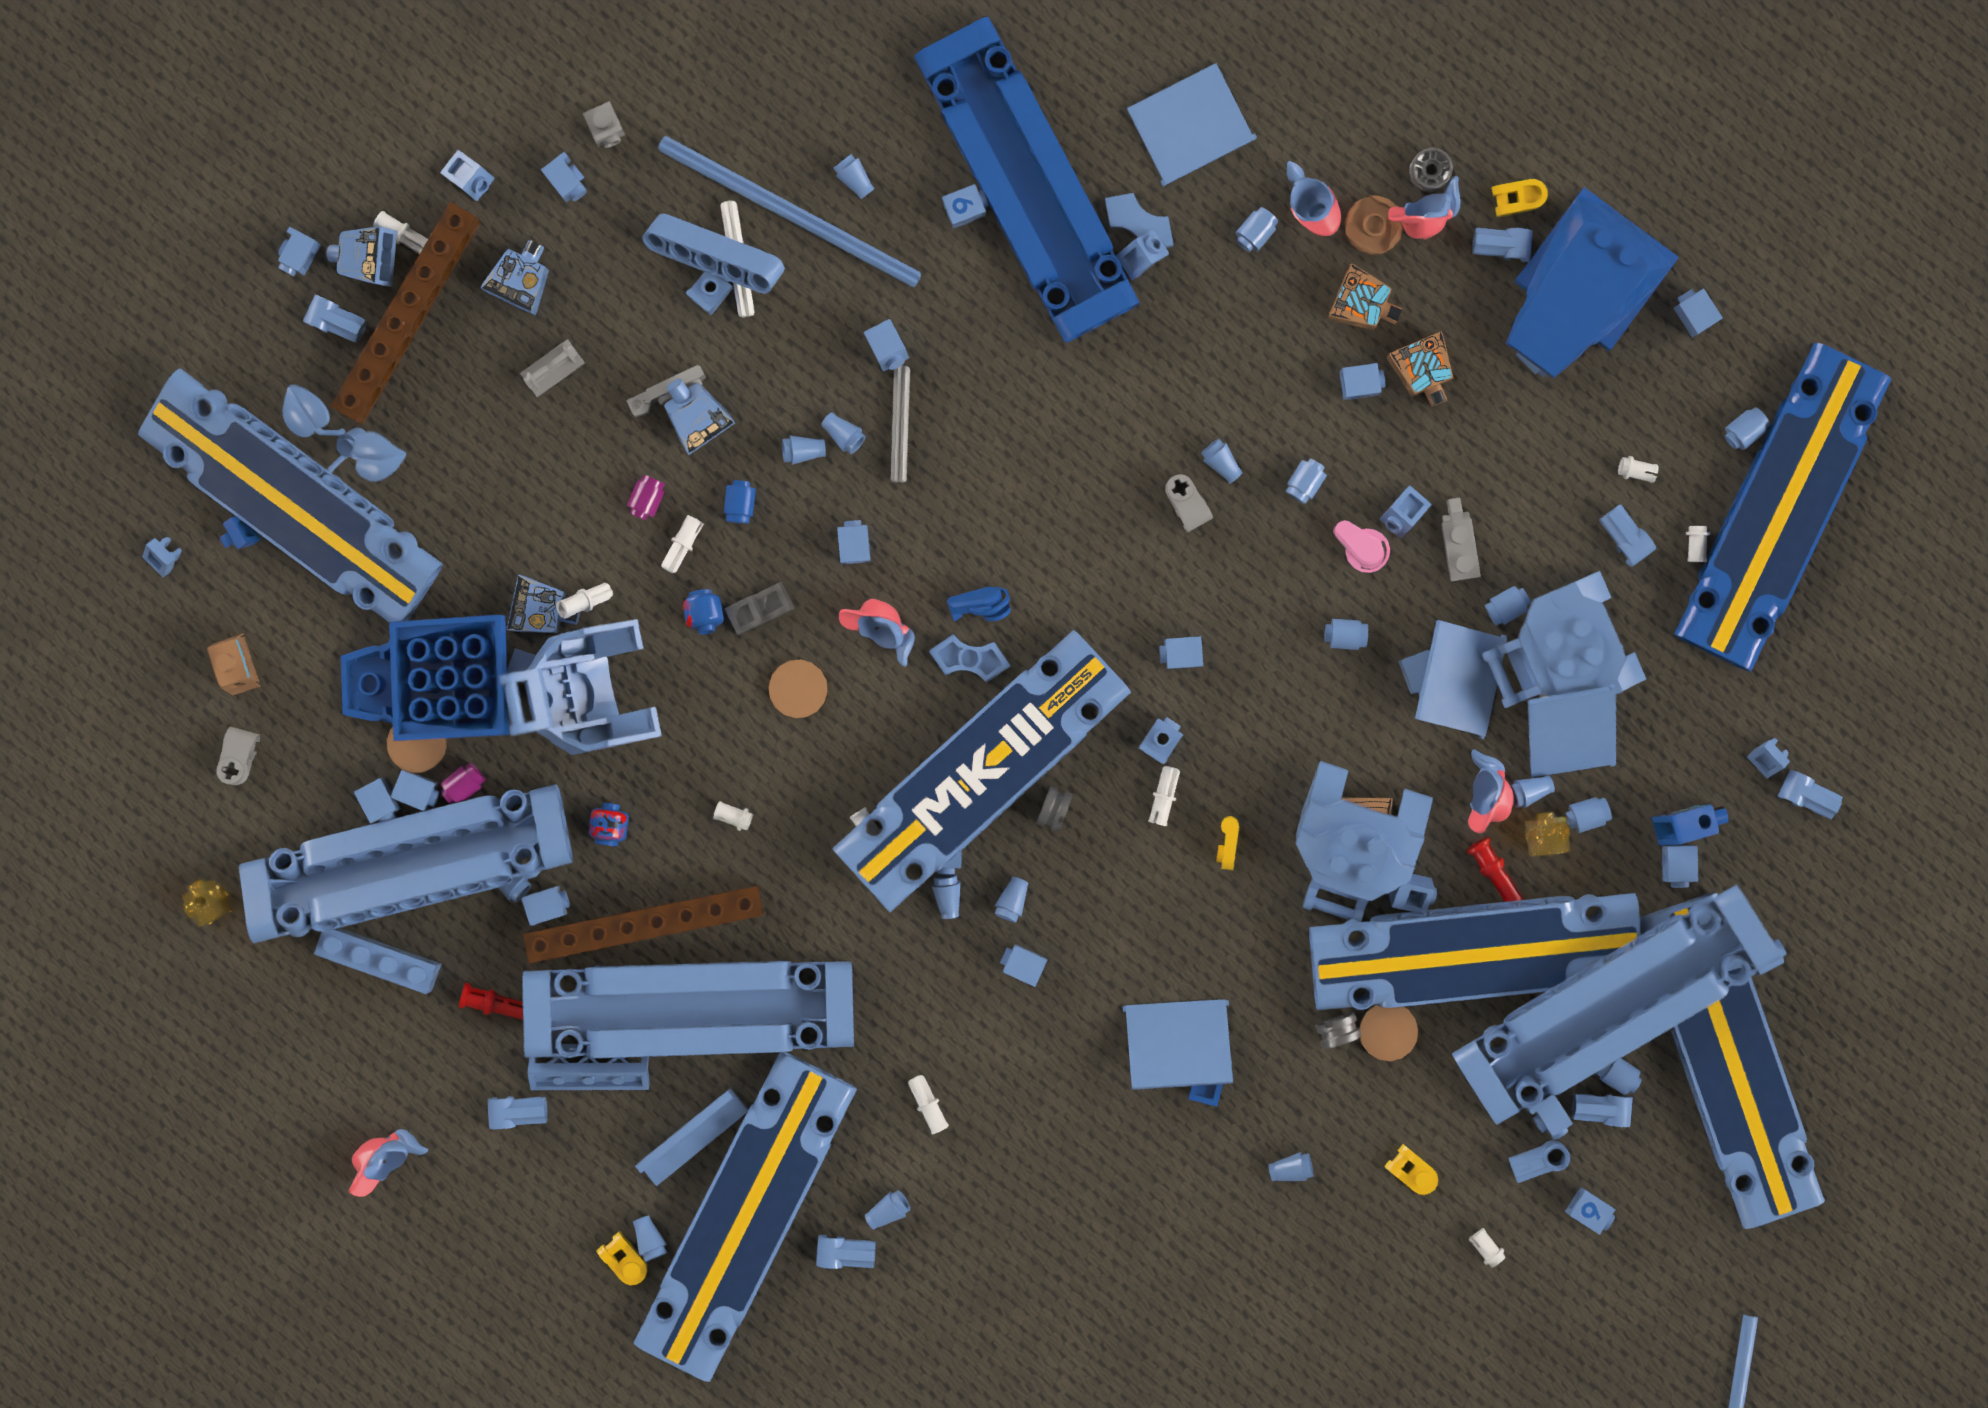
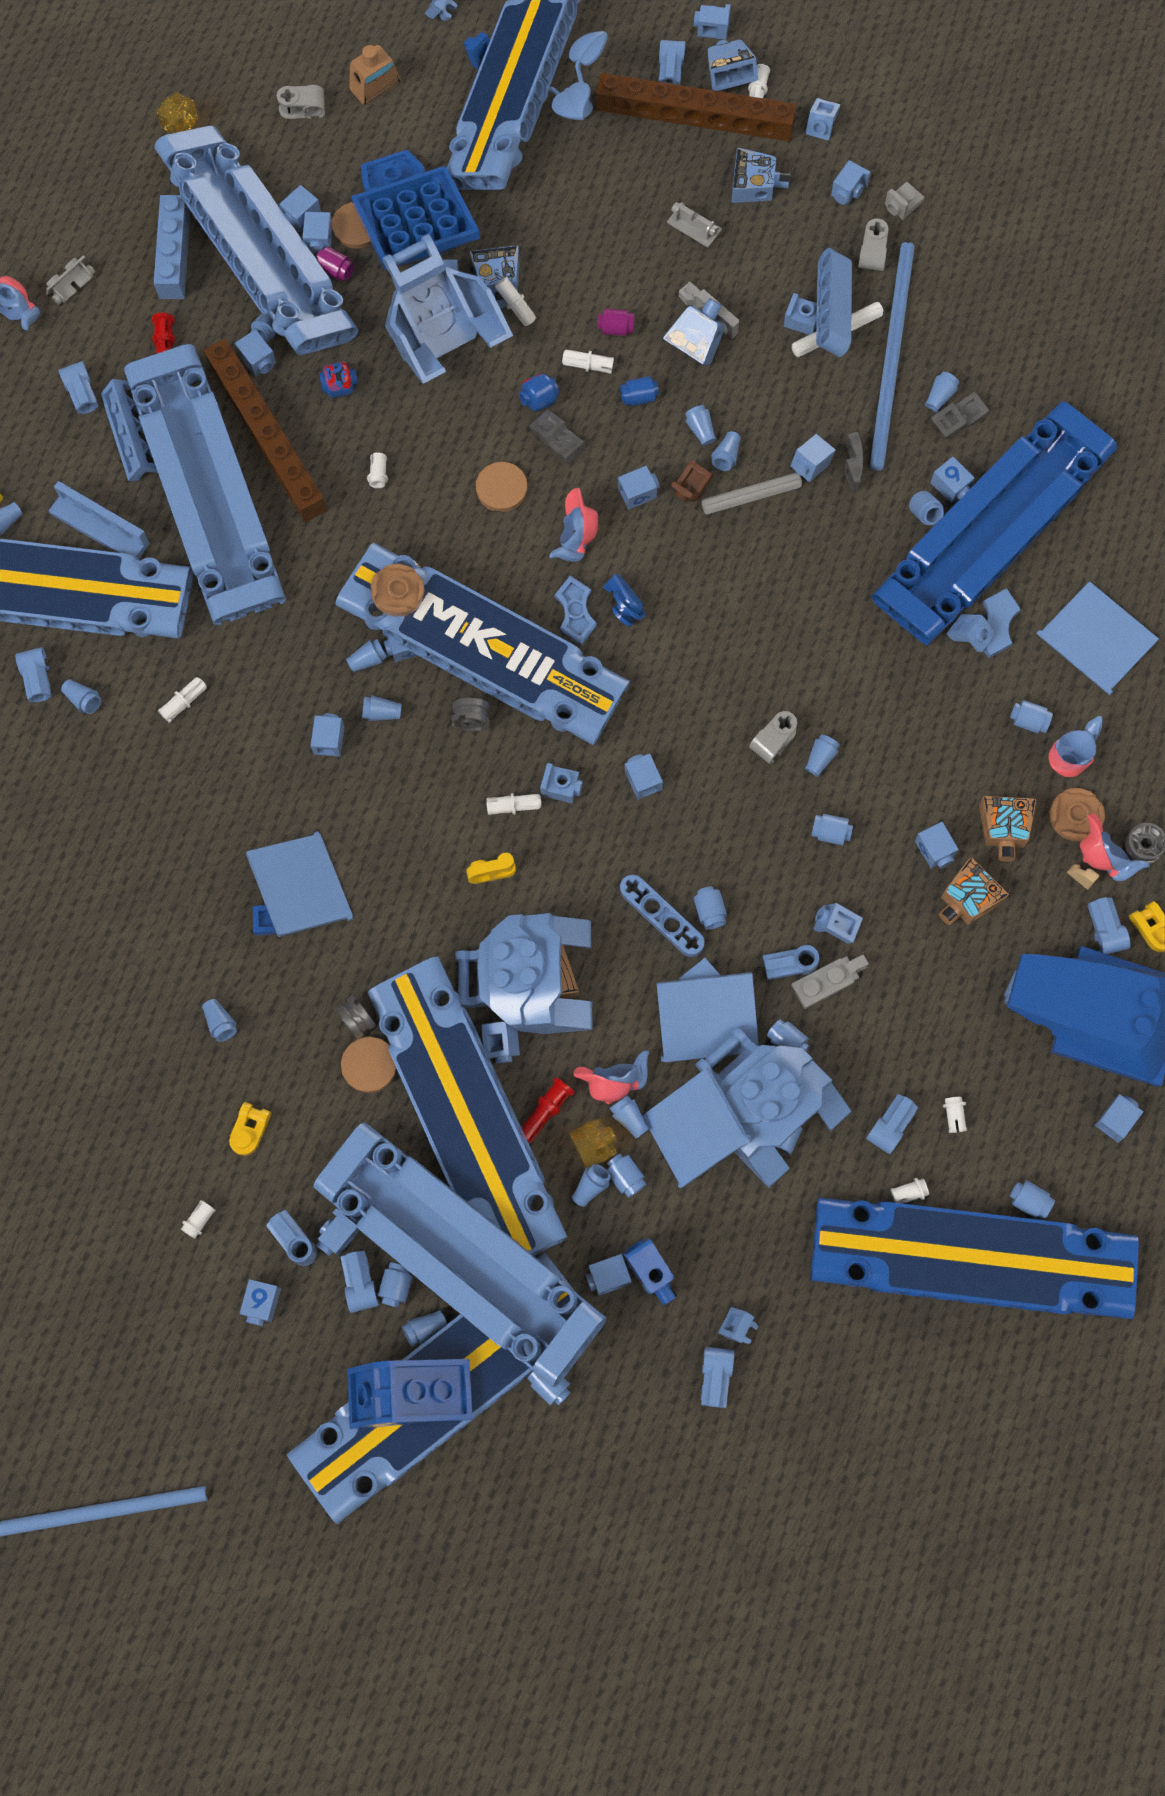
camera: 75 degrees right, 15 degrees down
(379, 1095) = (76, 273): none -> light grey hinge
(658, 182) = (874, 246): none -> light grey piece
(868, 484) = (692, 482): none -> reddish brown bracket
(888, 166) = (960, 416): none -> flat silver slope
(902, 842) = (397, 590): none -> medium nougat tile
(914, 305) = (854, 465): none -> flat silver slope
(988, 247) = (926, 508): none -> medium blue brick
(1334, 683) = (659, 918): none -> medium blue beam
(1362, 546) = (793, 895): bright pink piece -> none
(1430, 578) = (787, 963): none -> medium blue piece
(1440, 247) = (1085, 878): none -> tan tile
(1587, 851) = (592, 1183): none -> medium blue cone
(1668, 1060) = (424, 1327): none -> medium blue cone
(1741, 1097) = (409, 1392): none -> blue bracket

